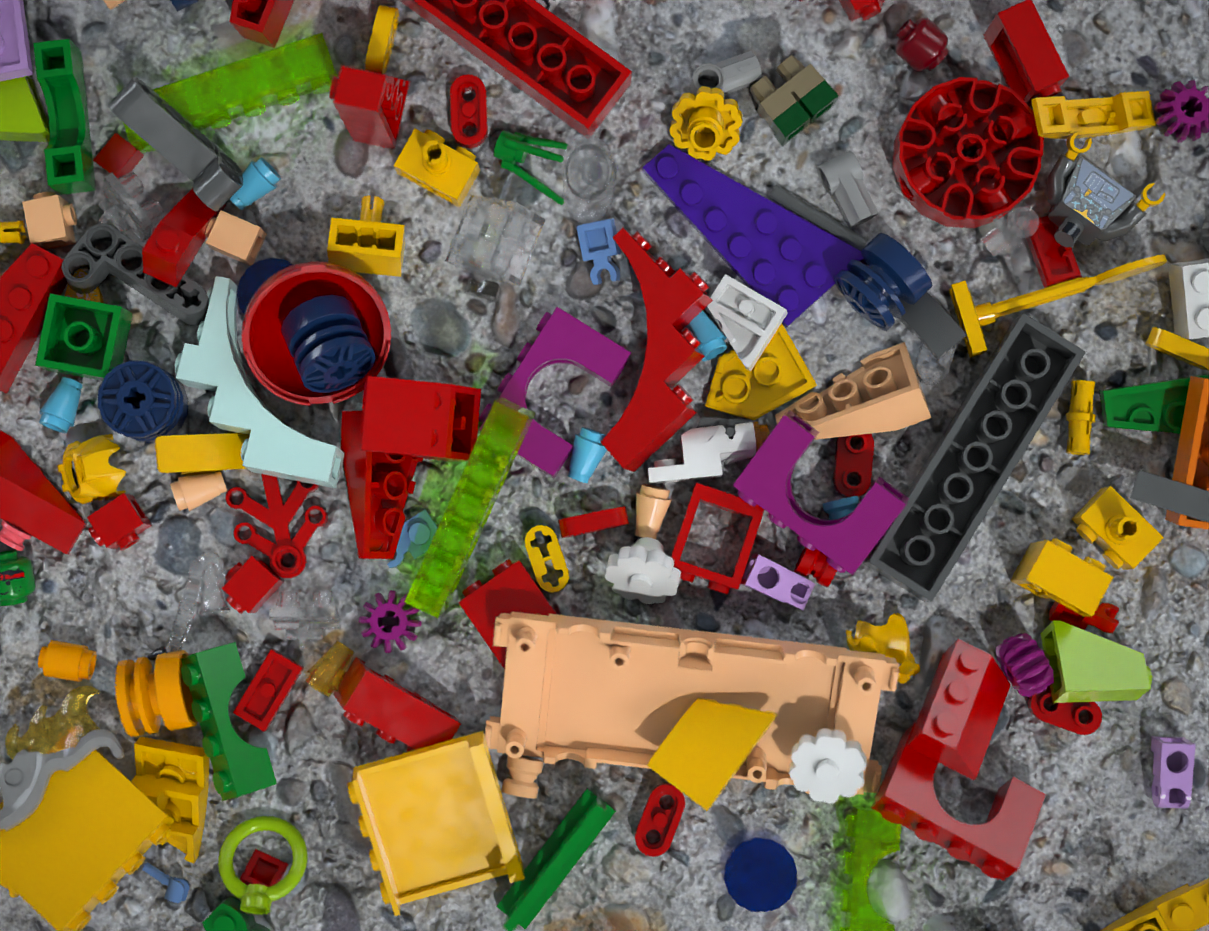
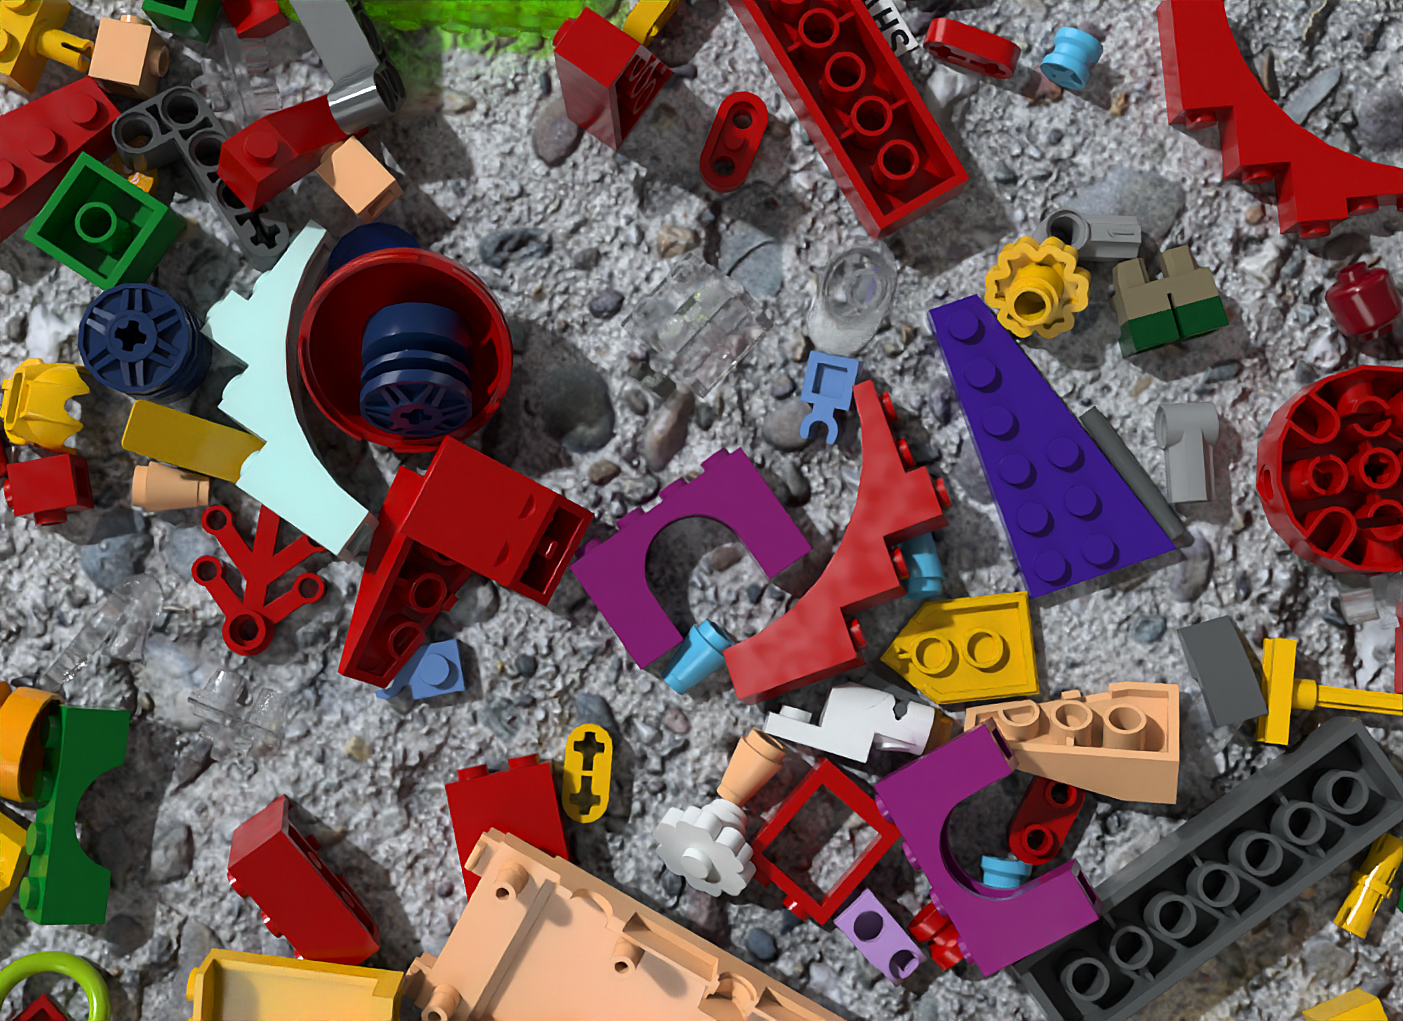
camera: 15 degrees right, 0 degrees up
(62, 406) = (42, 304): medium azure cone -> none
(250, 585) = (184, 643): red brick -> none
(258, 181) = (419, 118): medium azure cone -> none
(268, 690) = (149, 792): red plate -> none
(330, 669) = (240, 799): clear yellow cone -> none
(367, 243) = (526, 258): yellow brick -> none
(397, 632) = (328, 777): magenta gear -> none
(437, 166) = (662, 197): yellow brick -> none
(469, 507) = (512, 666): clear neon green brick -> none
(515, 148) = (773, 216): green plant -> none
(593, 522) = (669, 751): red beam -> none
(745, 319) = (981, 566): white wing -> none
(887, 277) = (1187, 595): dark blue wheel -> none

